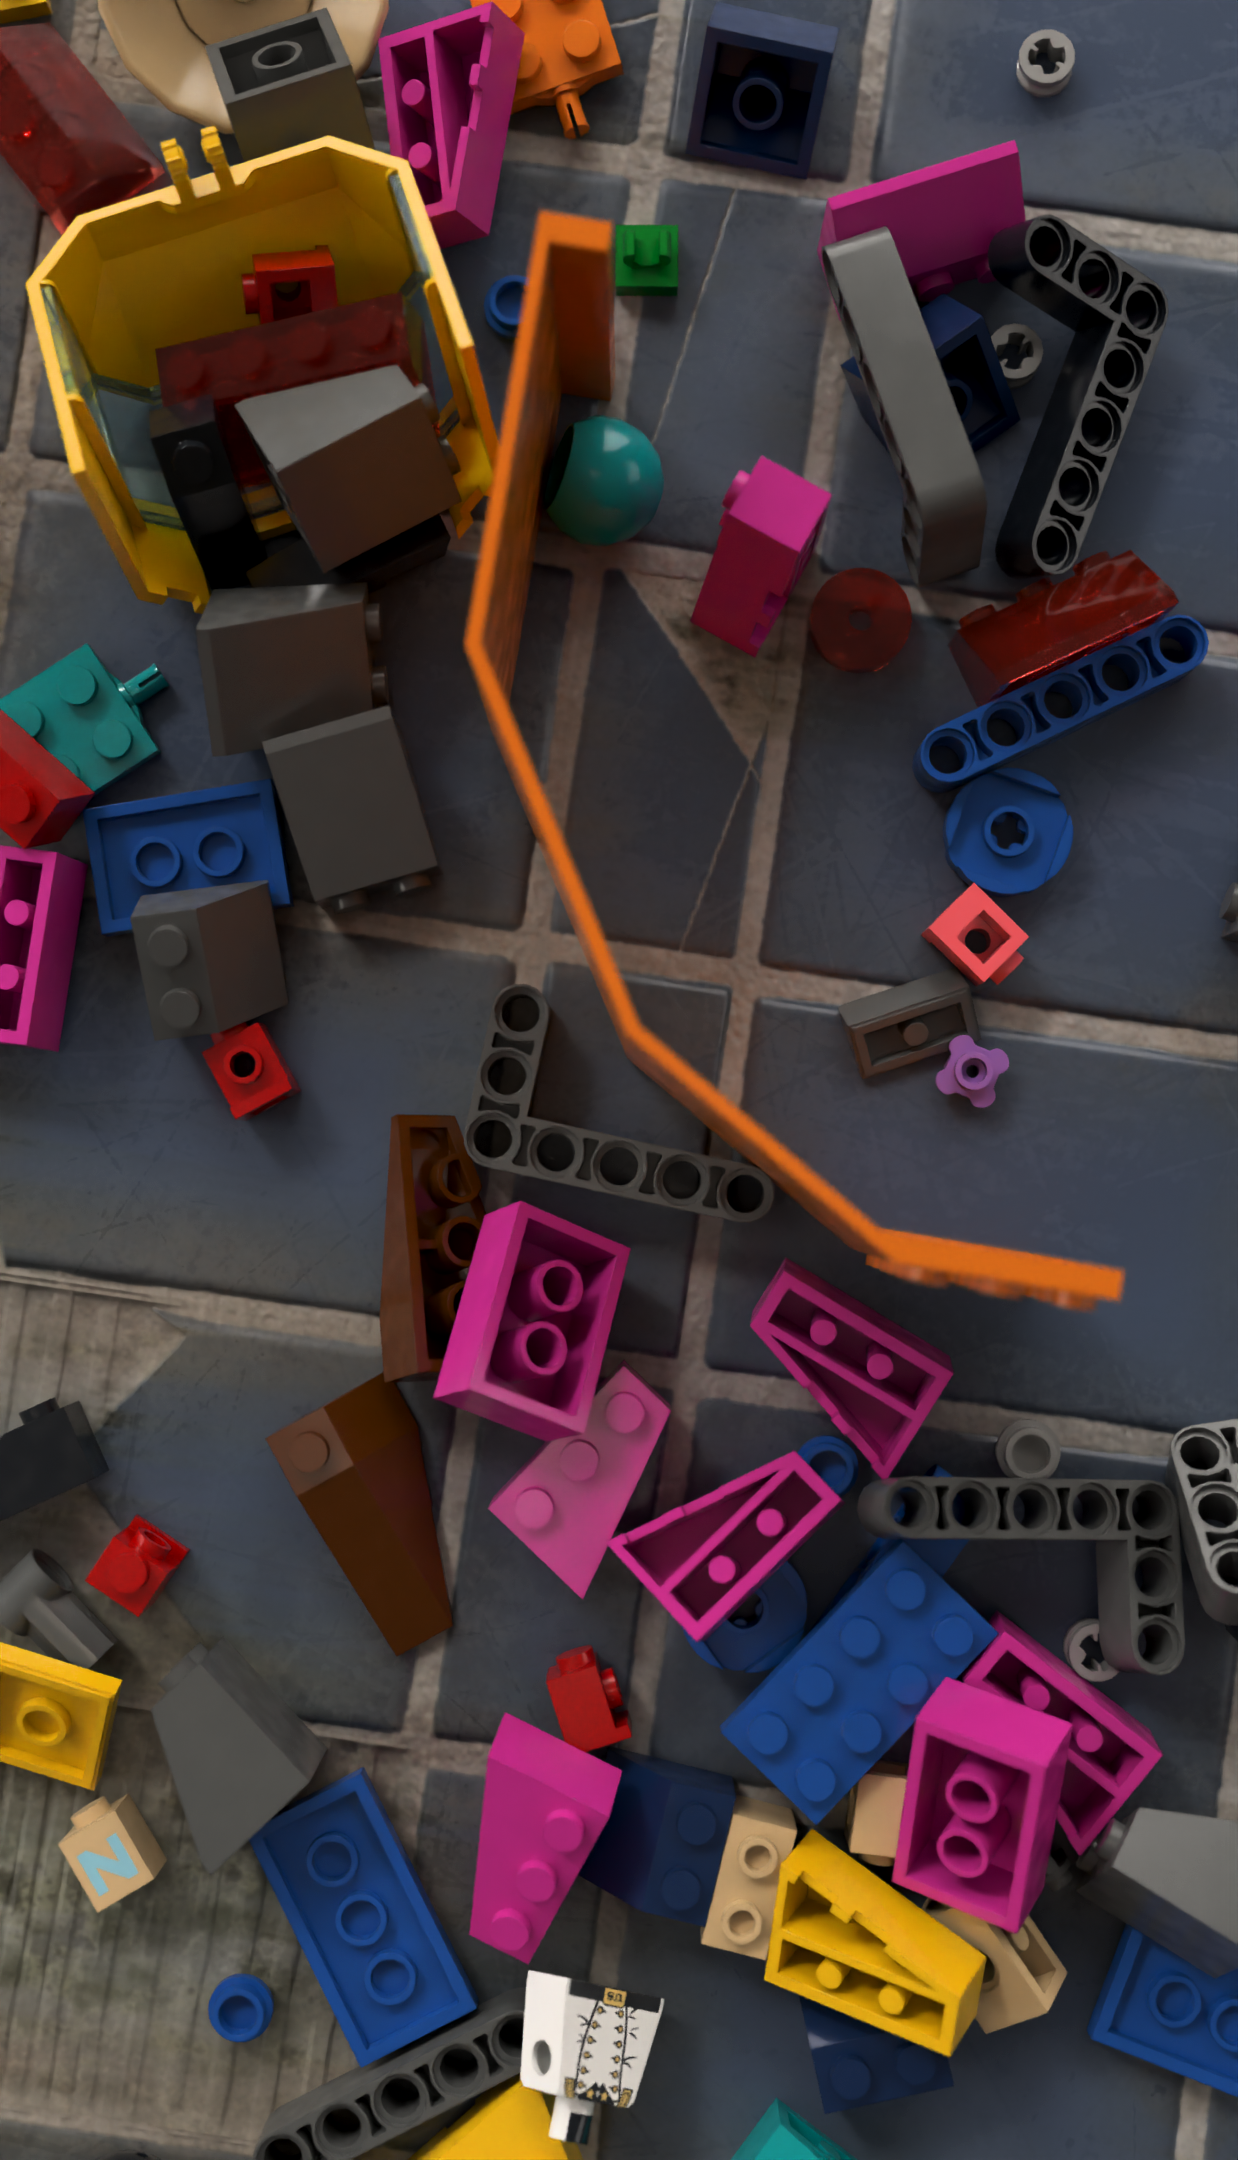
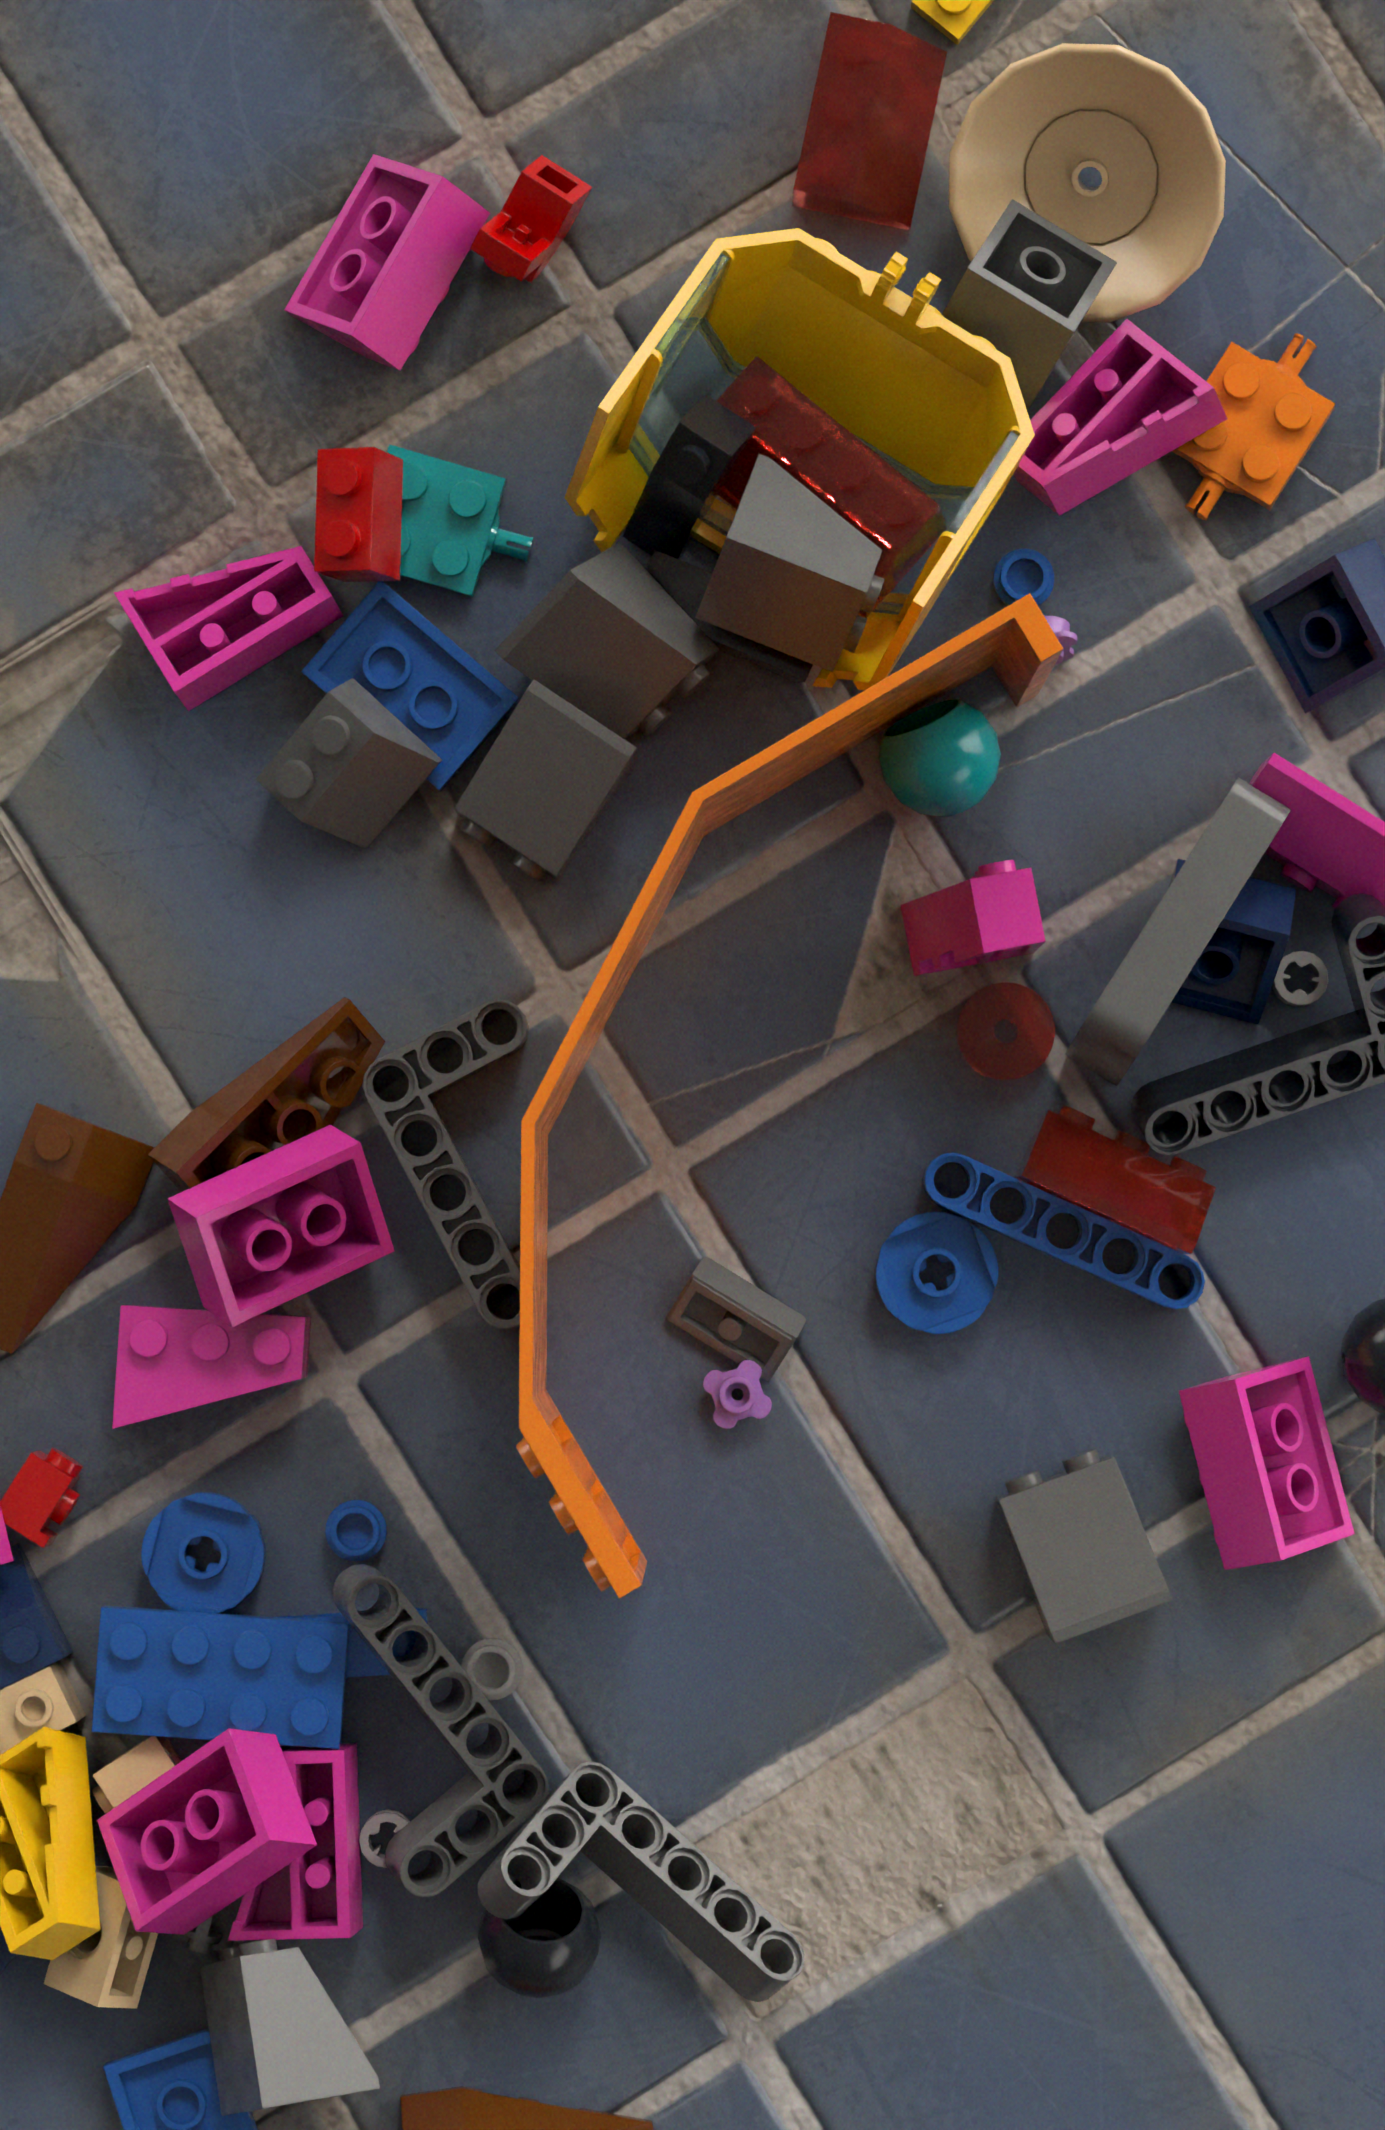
camera: 50 degrees right, 0 degrees up
(267, 1084) = (298, 885): red brick -> none
(314, 291) = (886, 414): red brick -> none
(646, 260) = (1142, 646): green tile -> none
(728, 1542) = (241, 1499): dark pink wedge -> none
(853, 1361) = (448, 1481): dark pink wedge -> none
(978, 913) = (844, 1291): coral brick -> none

